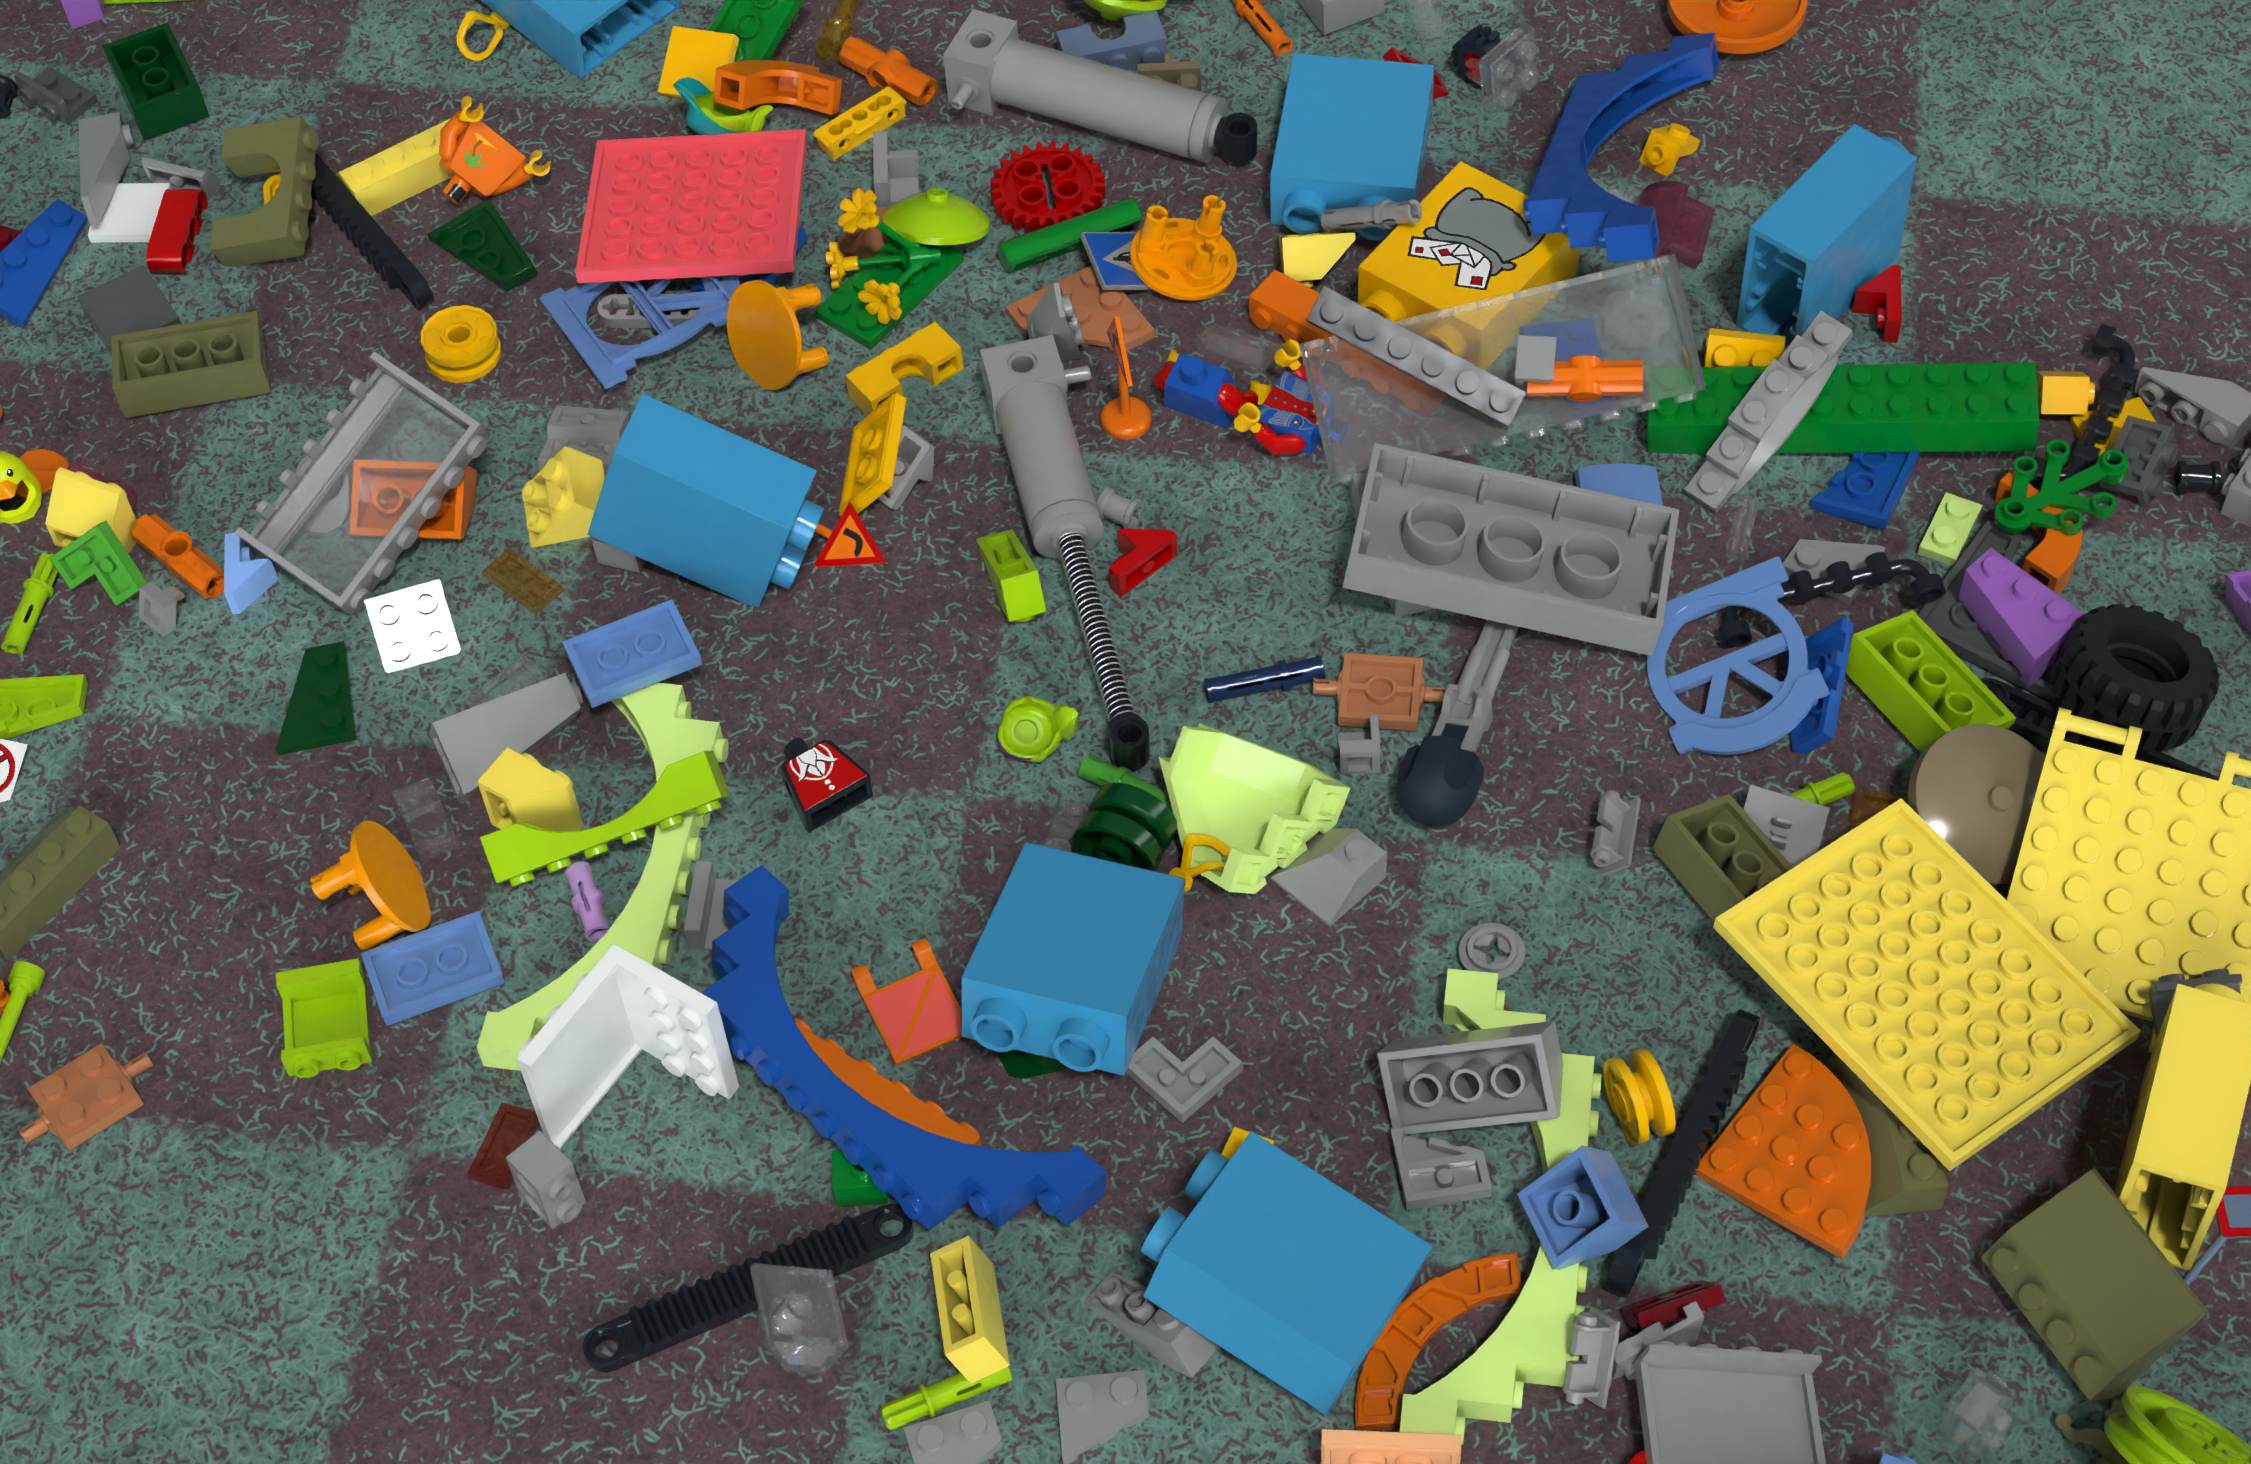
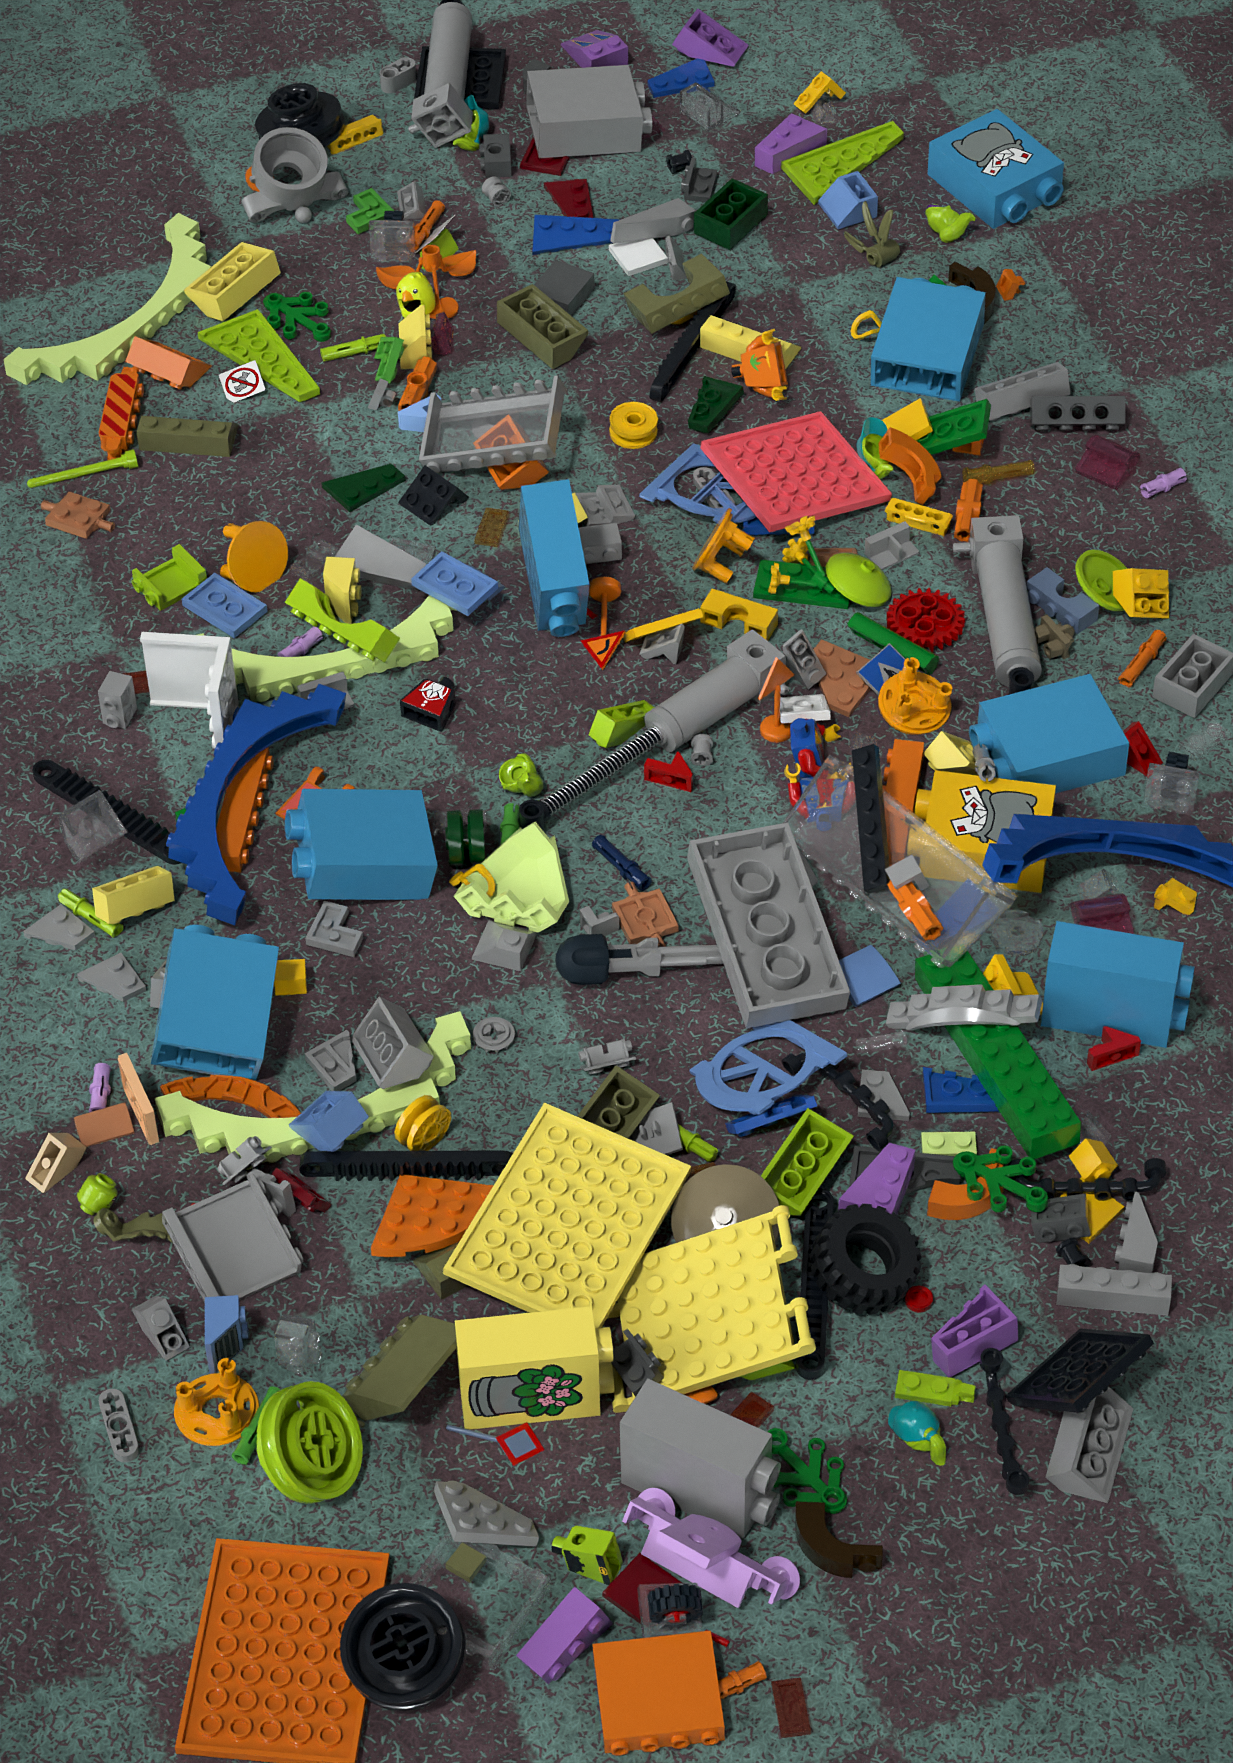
camera: 60 degrees right, 5 degrees down
(175, 230) = (628, 276): red beam -> none
(1143, 362) = (804, 707): none -> white tile

